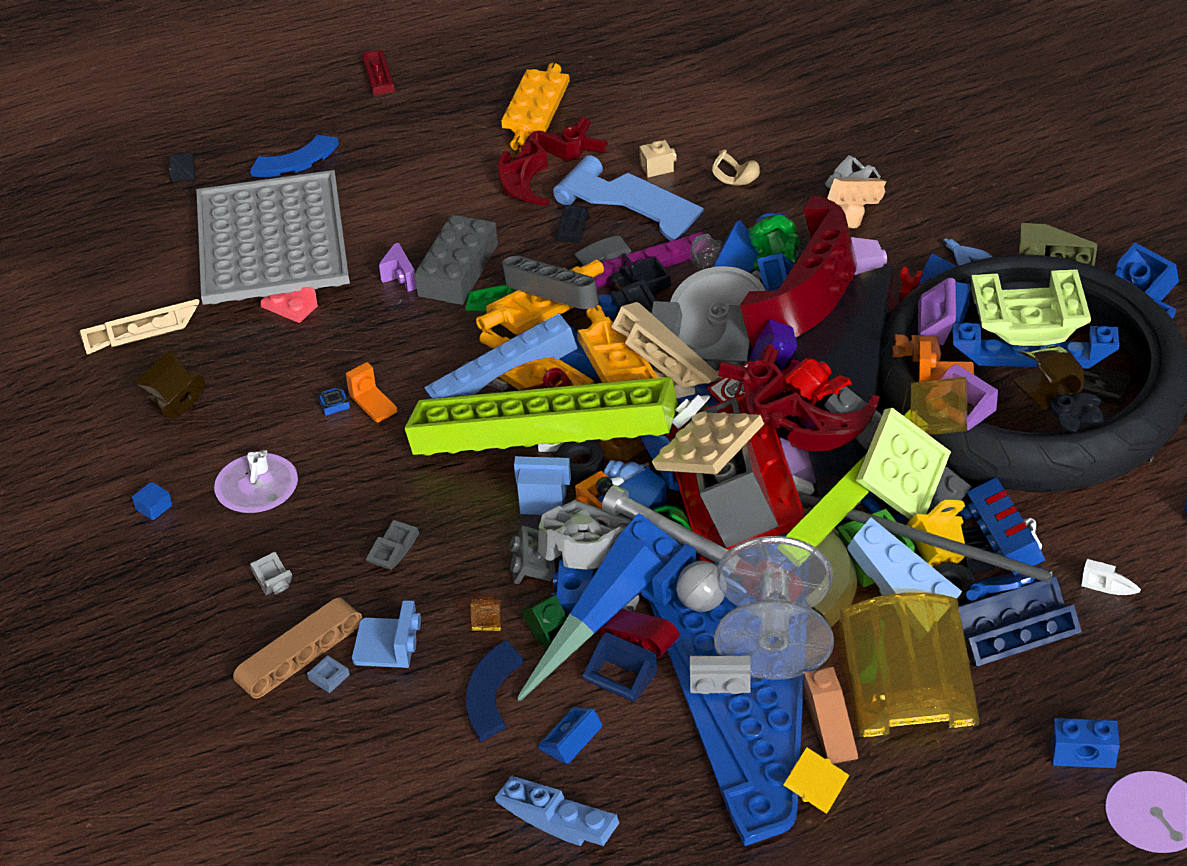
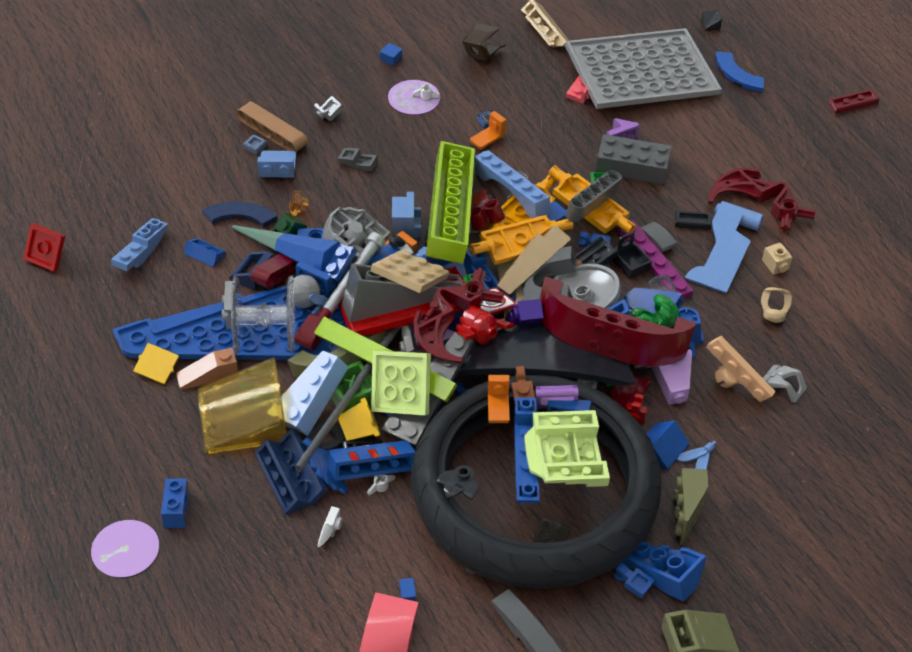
camera: 80 degrees right, 5 degrees up
(534, 103) = (833, 185): light orange plate -> none
(688, 409) = (453, 266): white plate -> none
(940, 405) = (448, 392): clear yellow plate -> none
(979, 395) = (467, 417): medium lavender tile -> none
(1053, 379) = (489, 459): dark brown piece -> none

